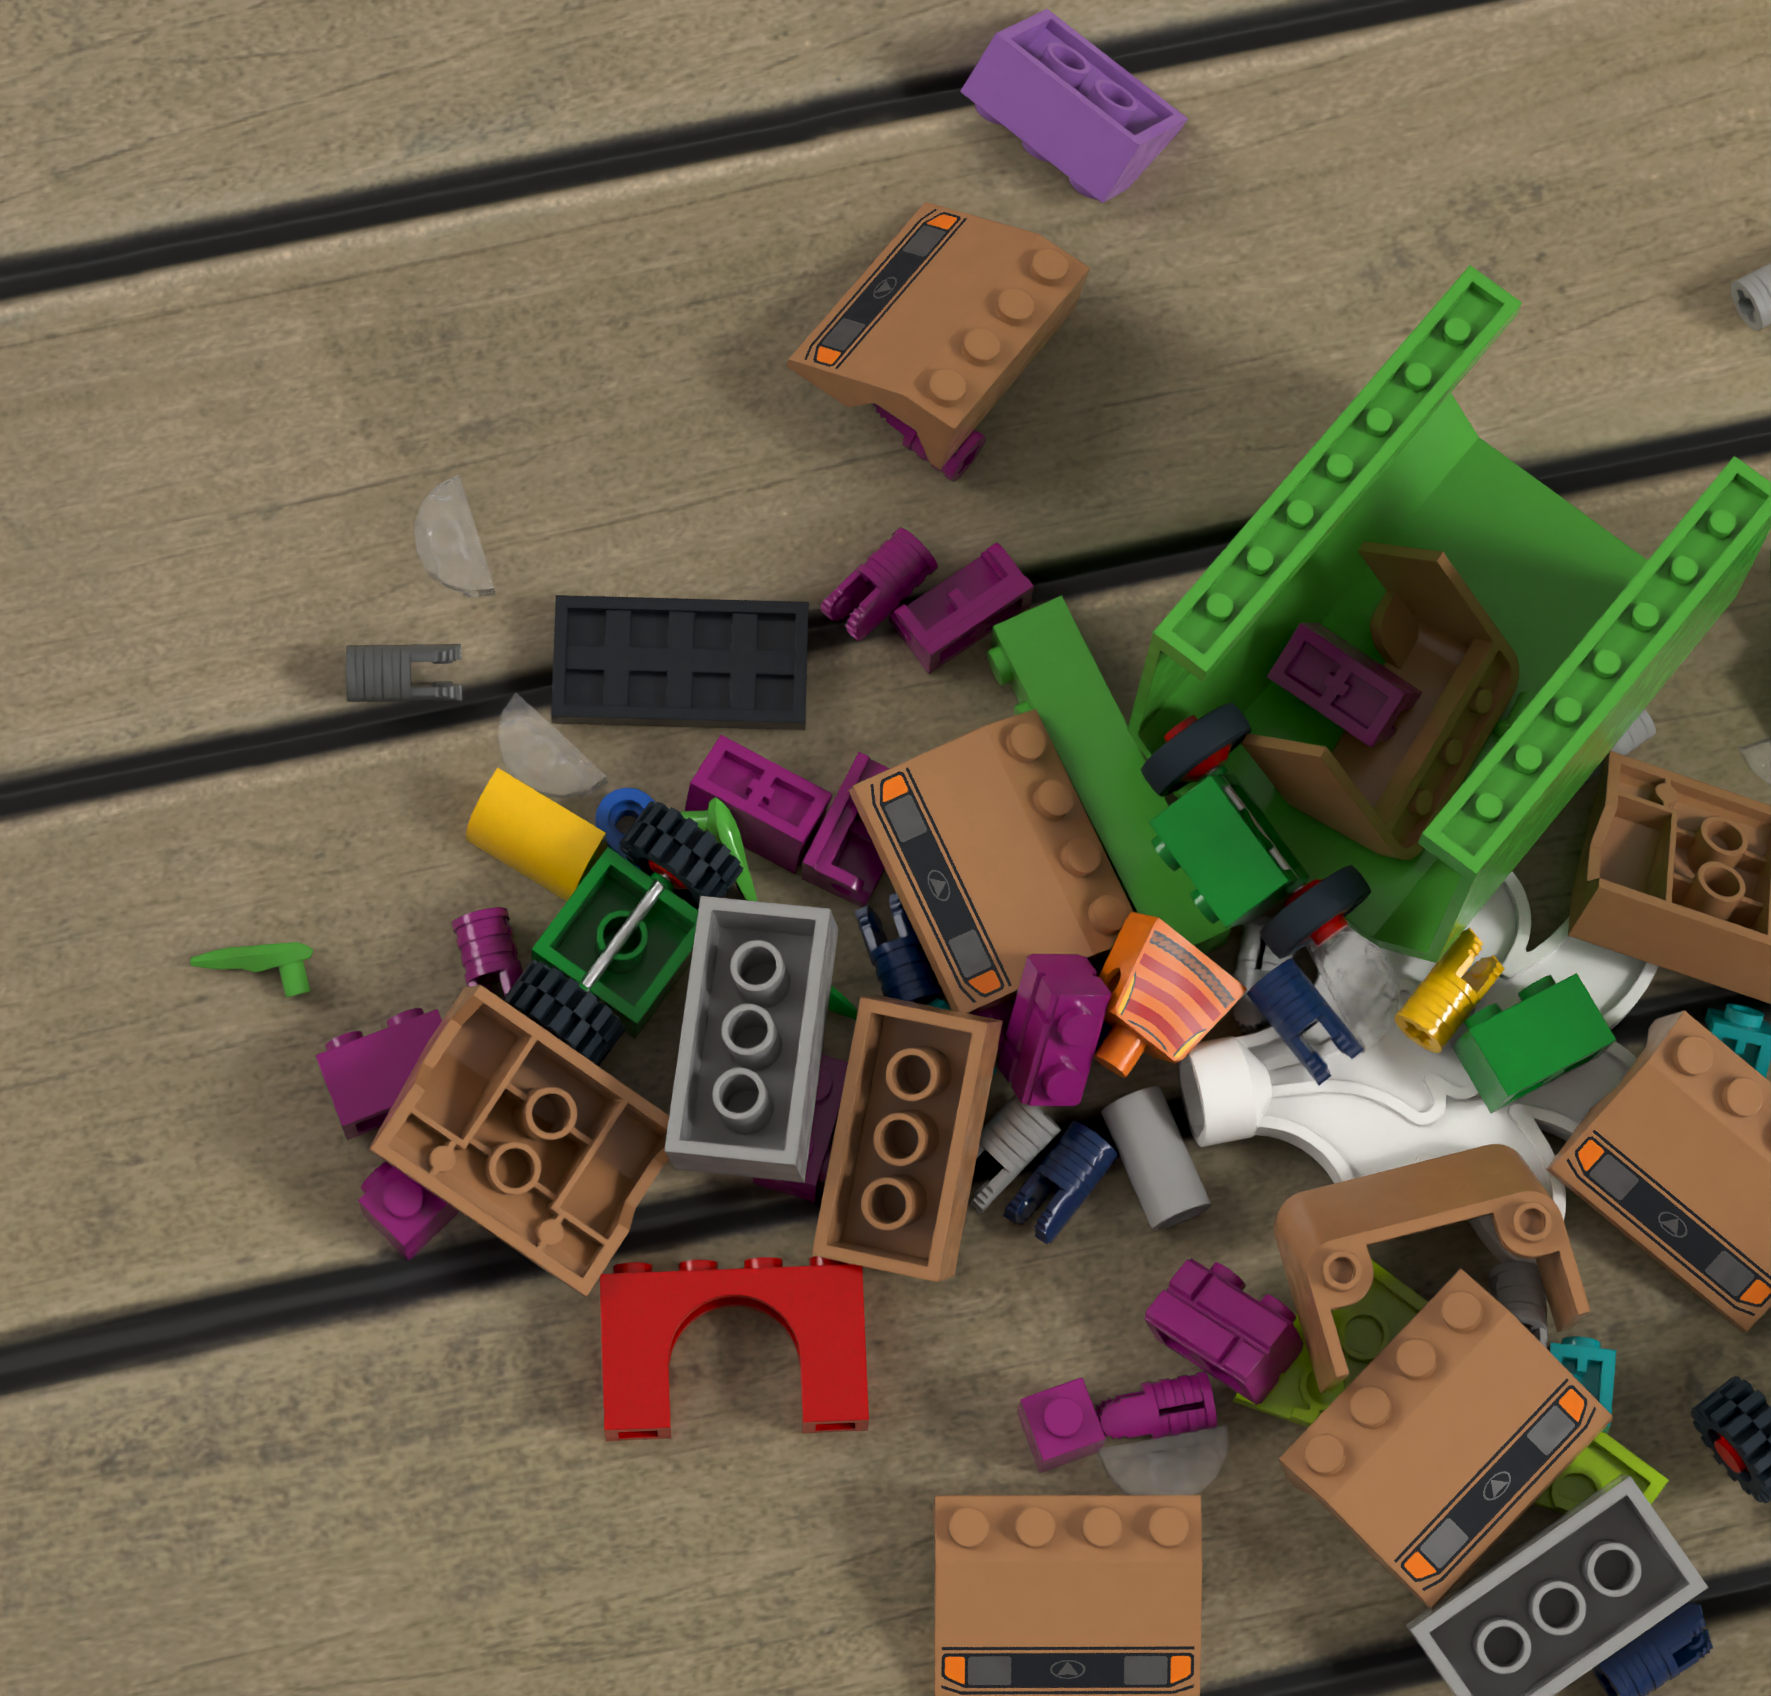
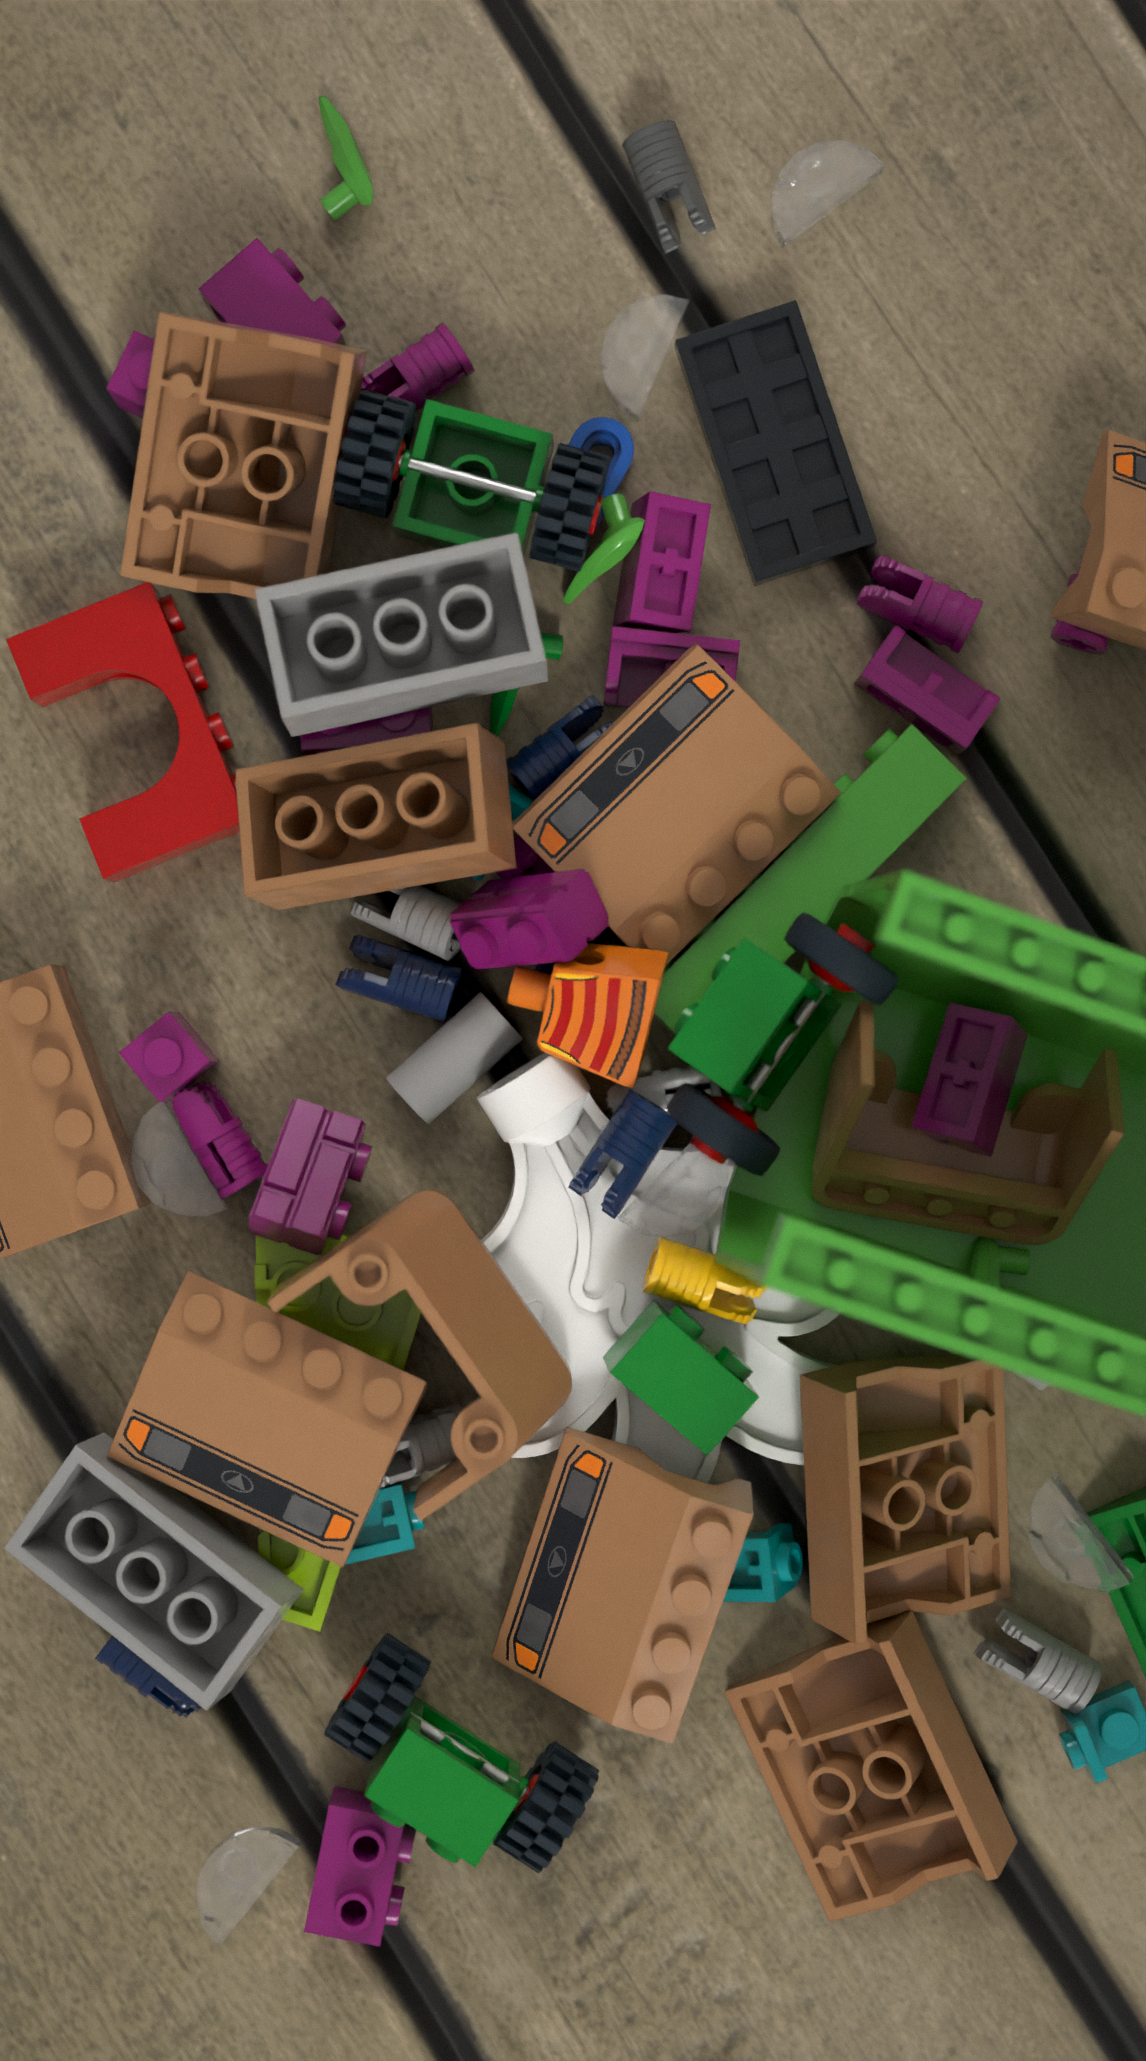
camera: 80 degrees right, 15 degrees up
(534, 835) = (555, 366): yellow brick -> none

